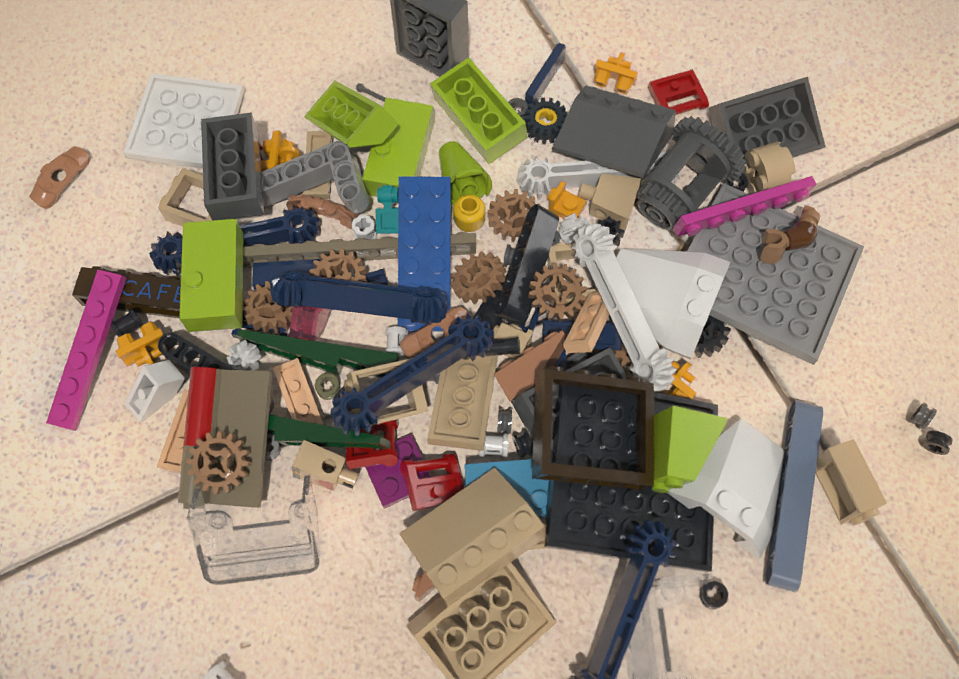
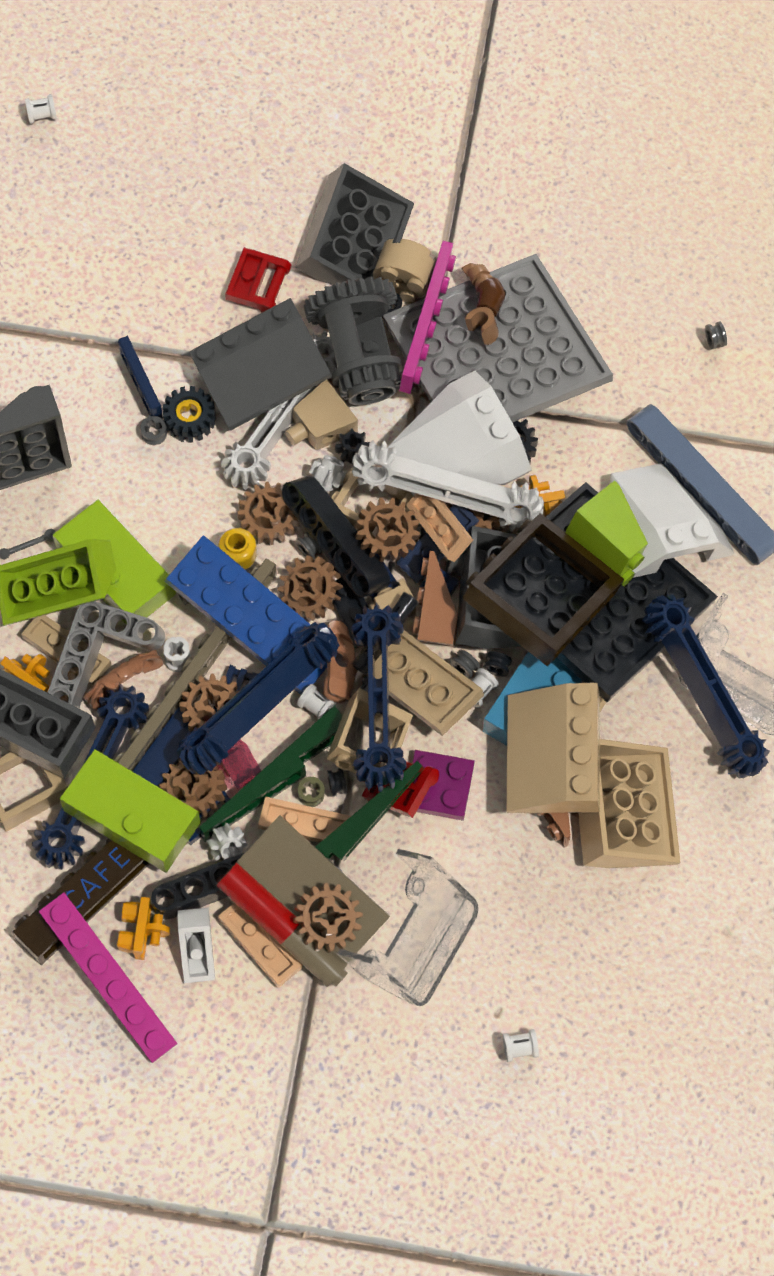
camera: 55 degrees left, 0 degrees up
(127, 323) = (105, 927): black bush -> none
(314, 459) = (384, 839): tan torso -> none
(388, 216) = (181, 621): teal plate -> none
(434, 490) = (485, 762): red plate -> none
(465, 172) = (186, 523): lime cone -> none
(479, 110) = (131, 463): lime brick -> none
(565, 203) = (291, 462): light orange bracket -> none
(618, 70) = (180, 323): light orange hips -> none
(722, 590) = (735, 619): black bush -> none
(849, 483) = (729, 436): tan window -> none
(938, 442) = (745, 343): black bush -> none

